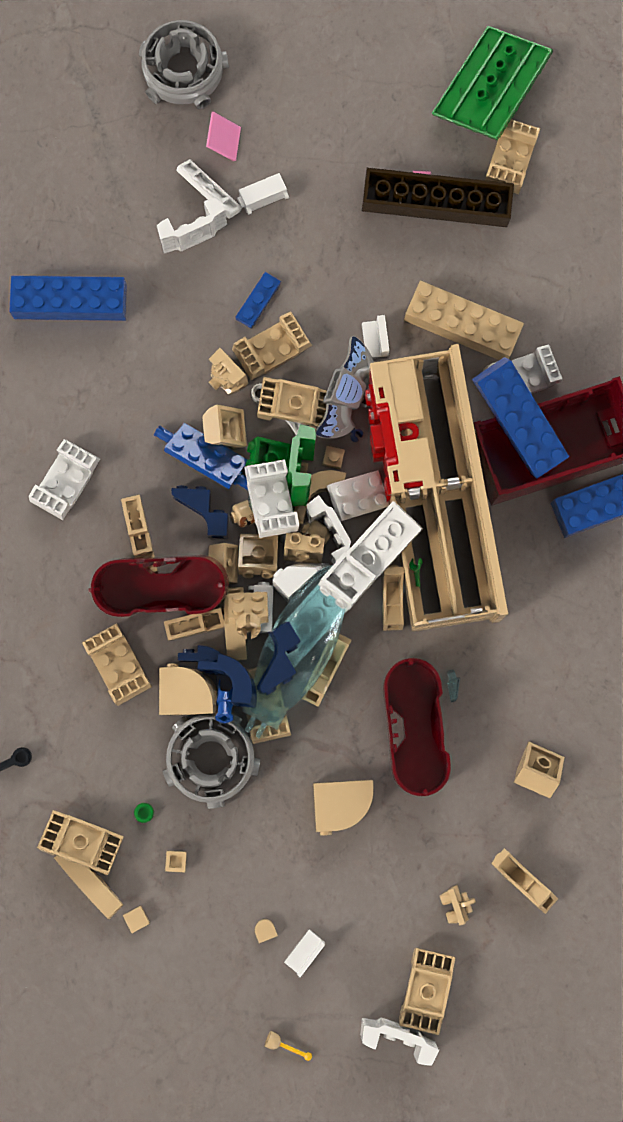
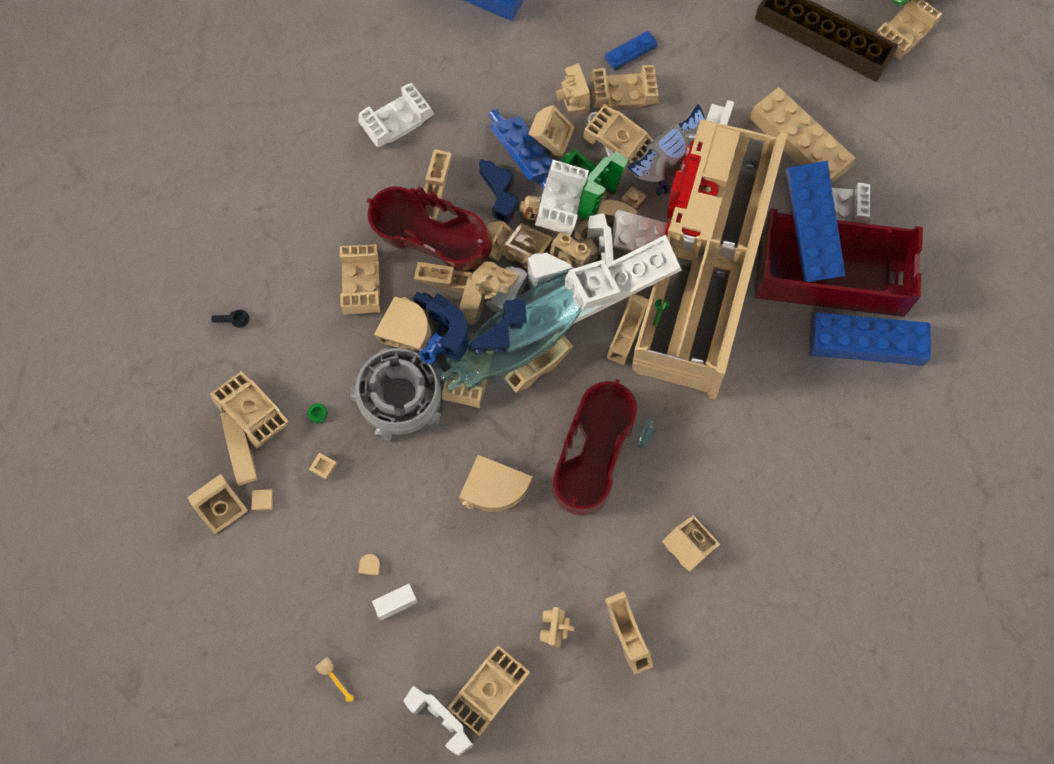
camera: 30 degrees right, 10 degrees down
(97, 944) = (217, 504): none -> tan slope

